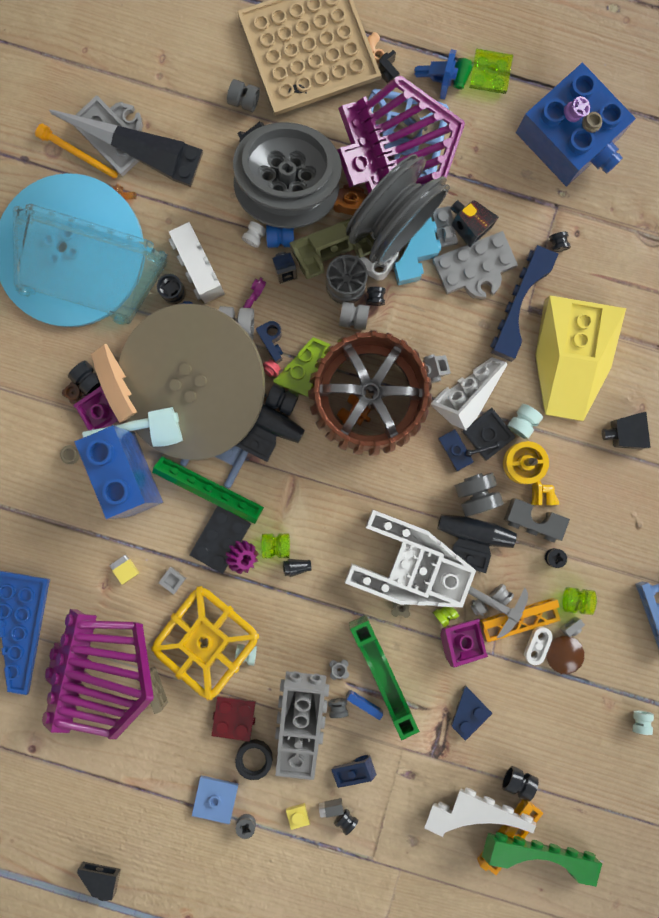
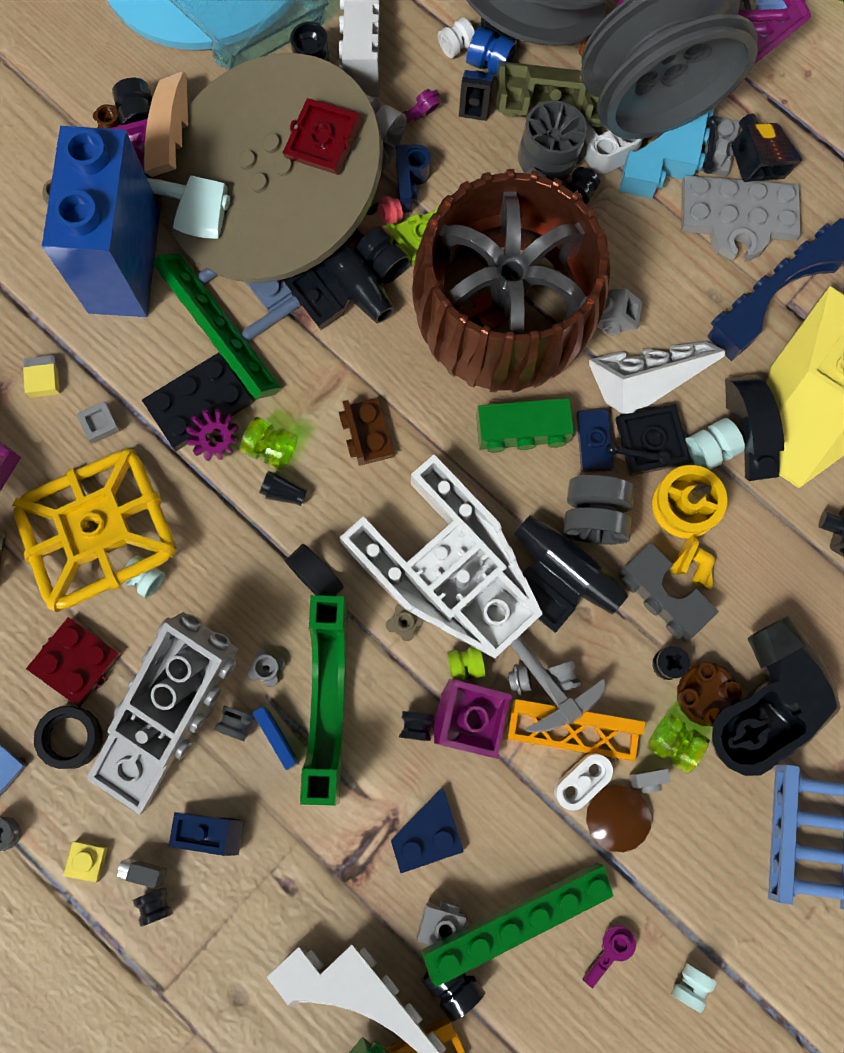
camera: 25 degrees right, 10 degrees down
(216, 355) = (322, 136): none -> dark red plate
(325, 508) = (367, 430): none -> reddish brown bracket
(340, 608) = (314, 572): none -> black tyre
(413, 462) = (524, 425): none -> green brick
(435, 218) = (708, 166): none -> black hinge
(436, 661) = (416, 726): none -> black wheel
(501, 757) = (436, 916): none -> light grey brick
(539, 737) = (516, 924): none -> green plate
(544, 397) = (760, 424): none -> black arch
(583, 565) = (706, 692): none -> reddish brown dish
(594, 720) = (617, 945): none -> magenta plate
(626, 557) = (781, 712): none -> black piece

